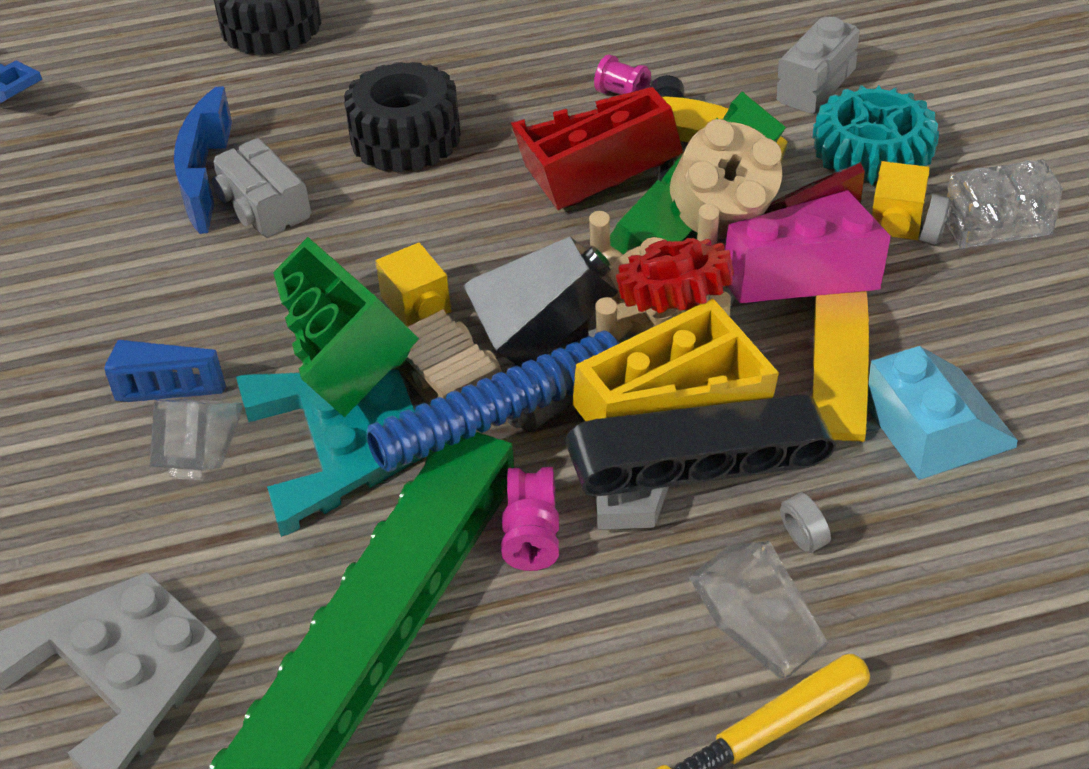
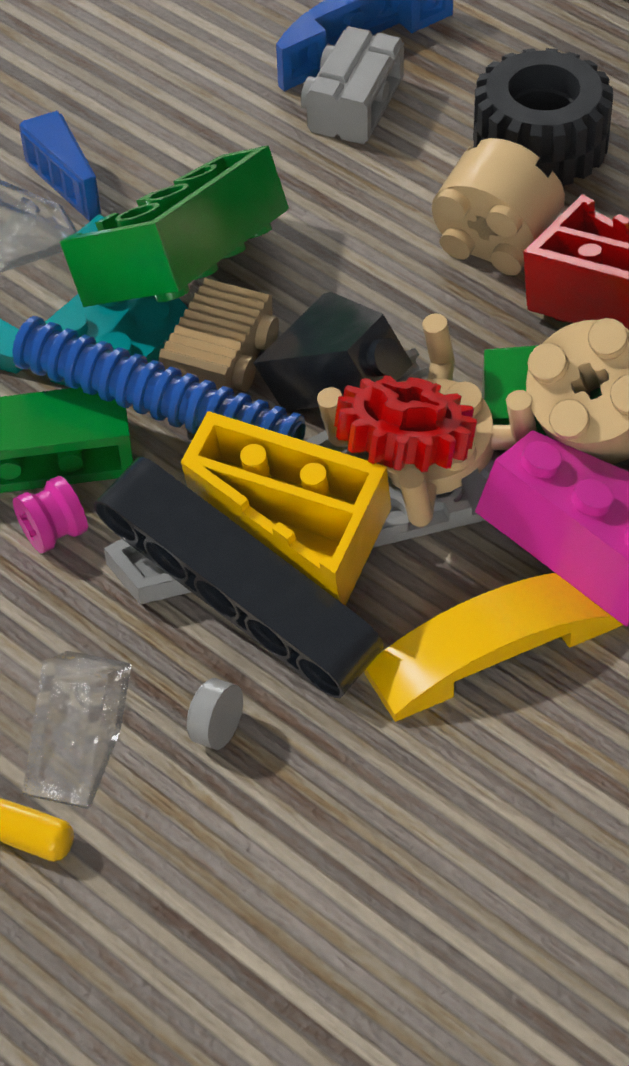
camera: 55 degrees right, 5 degrees up
(413, 284) = (308, 260): yellow brick -> none
(470, 167) = (496, 204): none -> tan brick
(531, 485) = (90, 478): dark pink wheel -> none
(933, 412) = (465, 756): medium azure slope -> none

